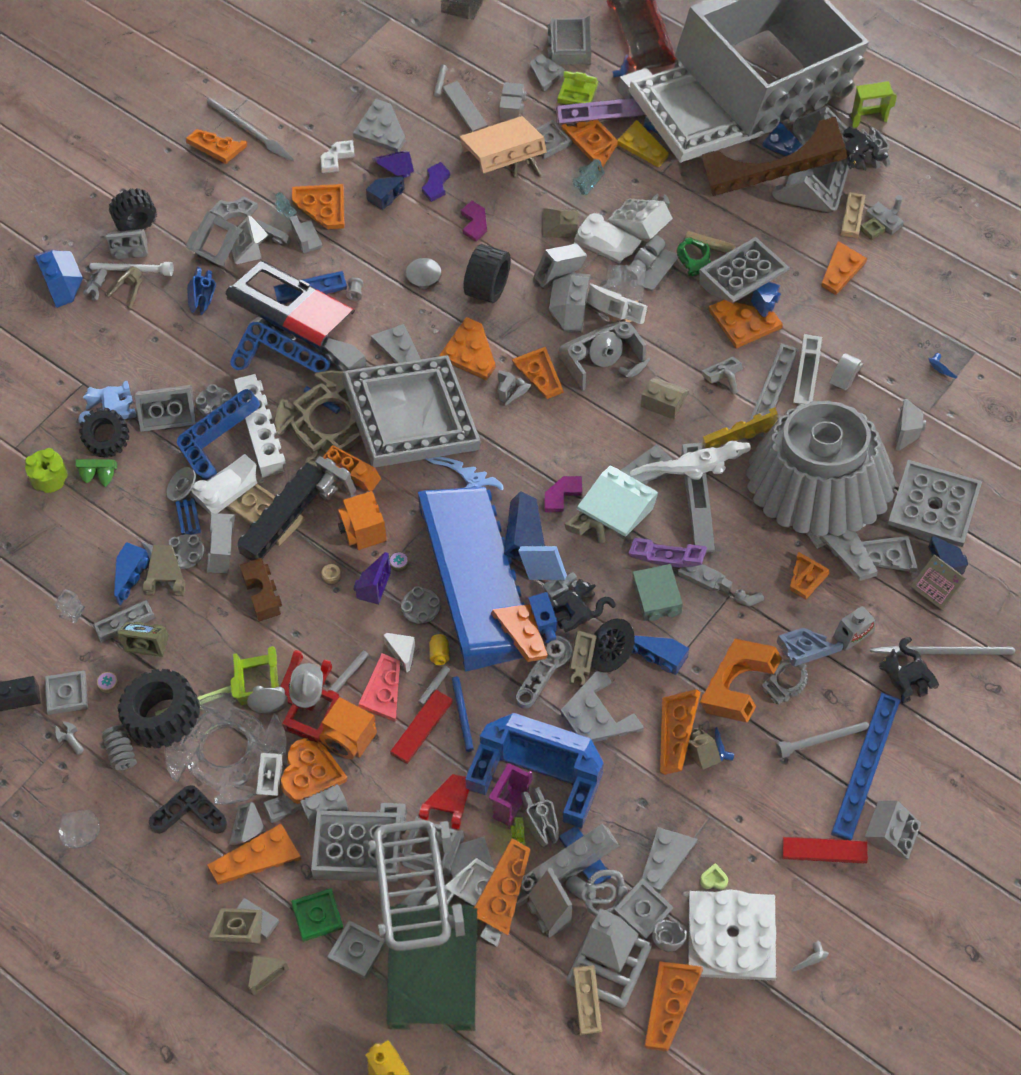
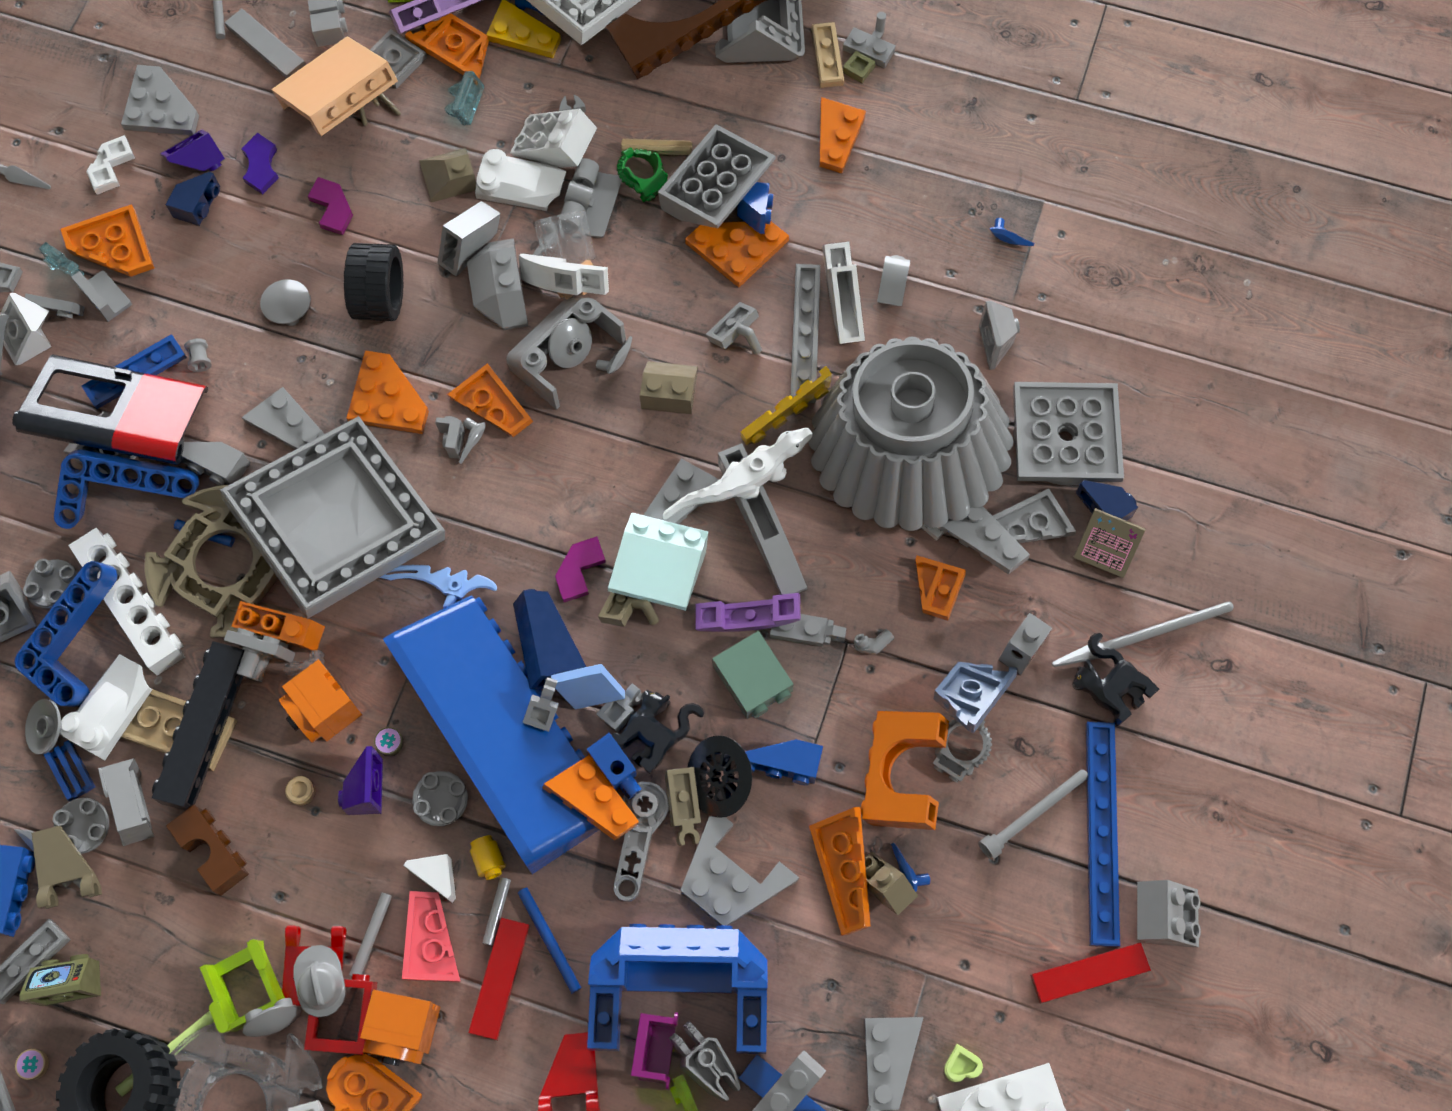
camera: 20 degrees left, 10 degrees up
(506, 564) = (541, 709): none -> light grey plate

